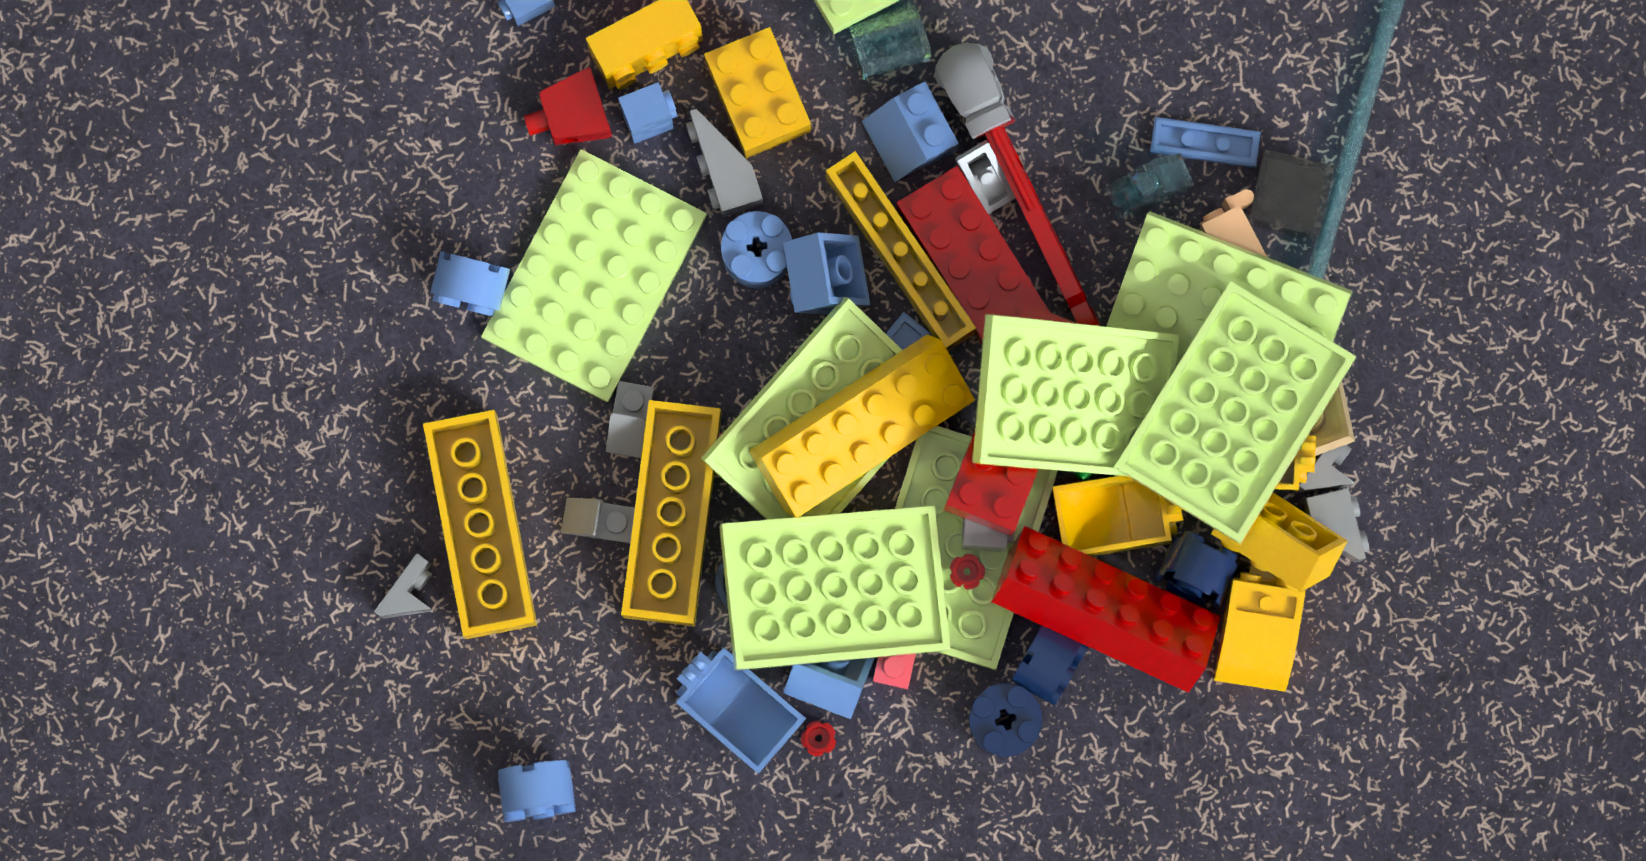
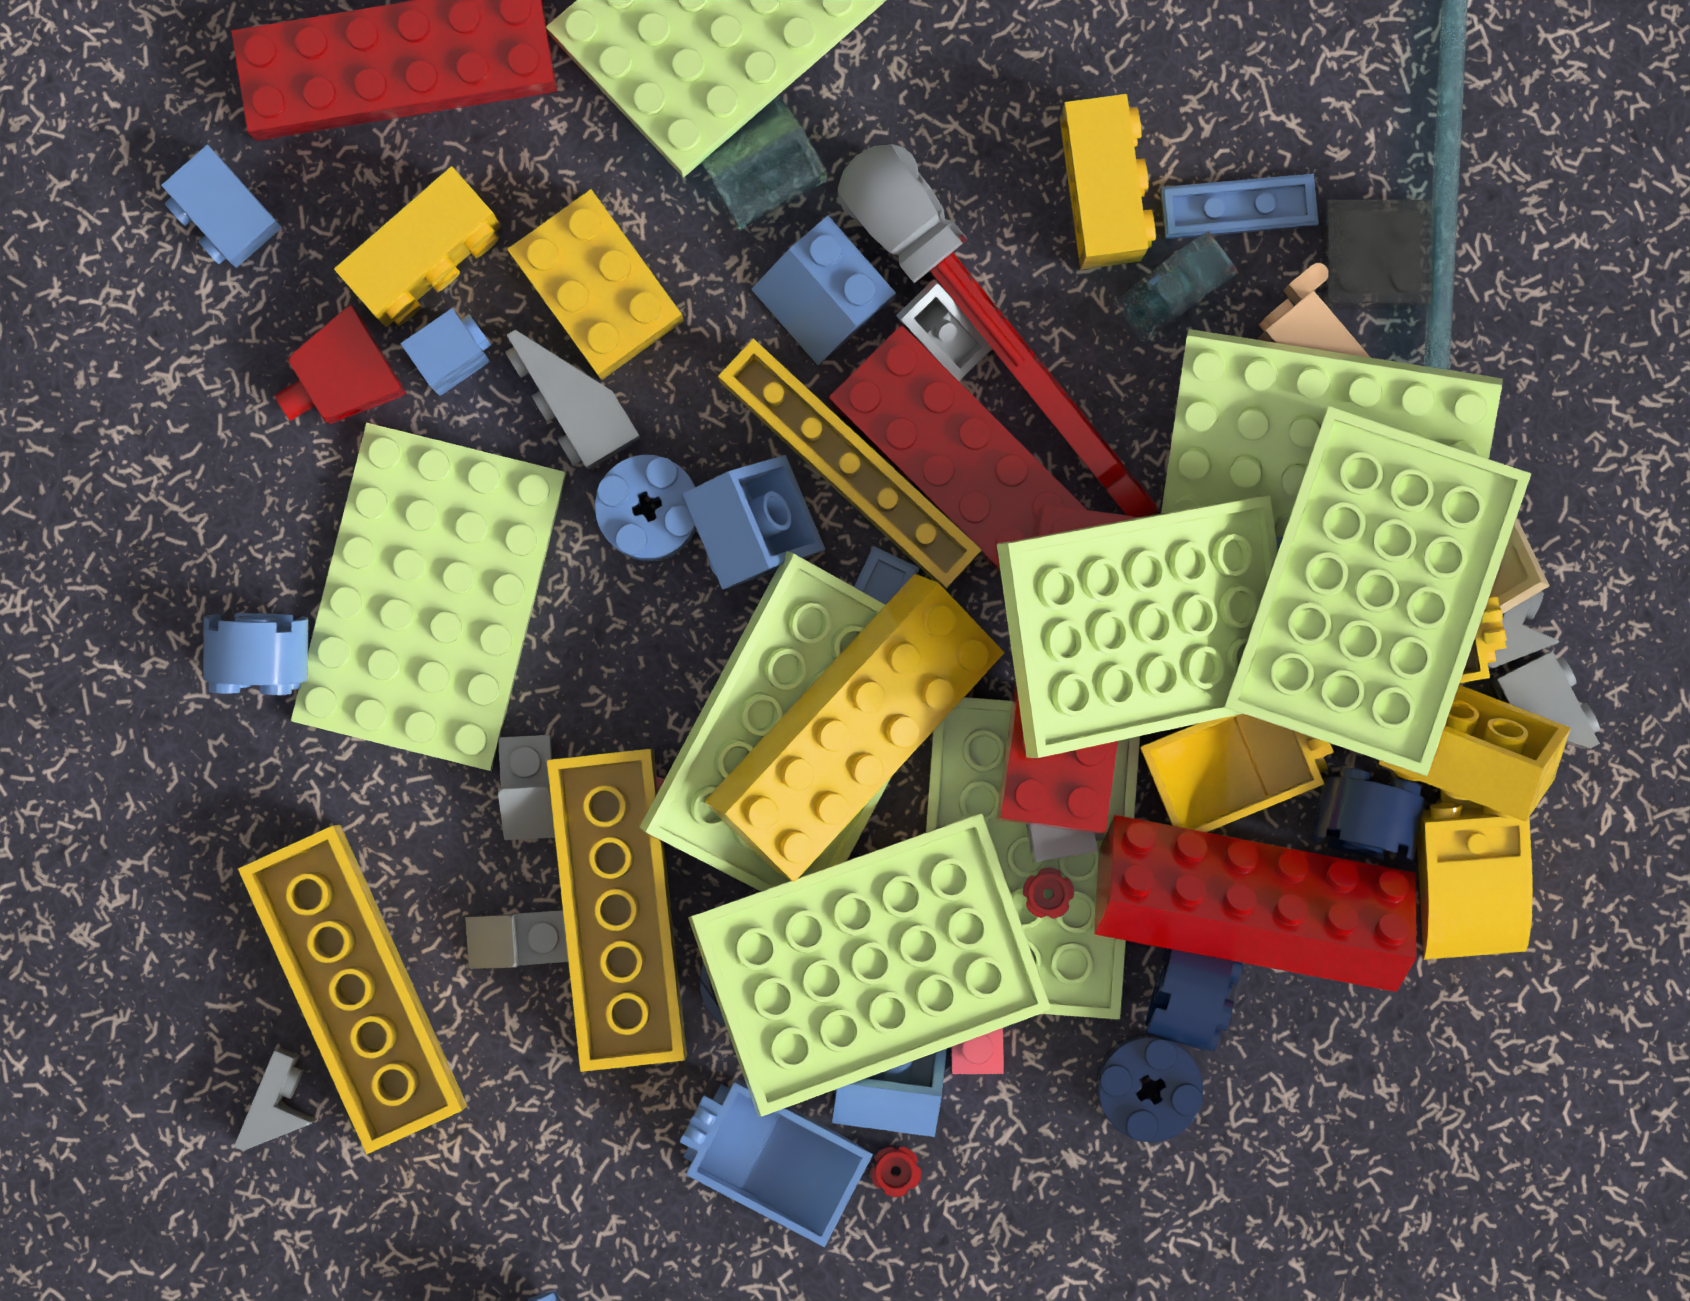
camera: 15 degrees left, 5 degrees up
(1118, 103) = (1106, 181): none -> yellow brick

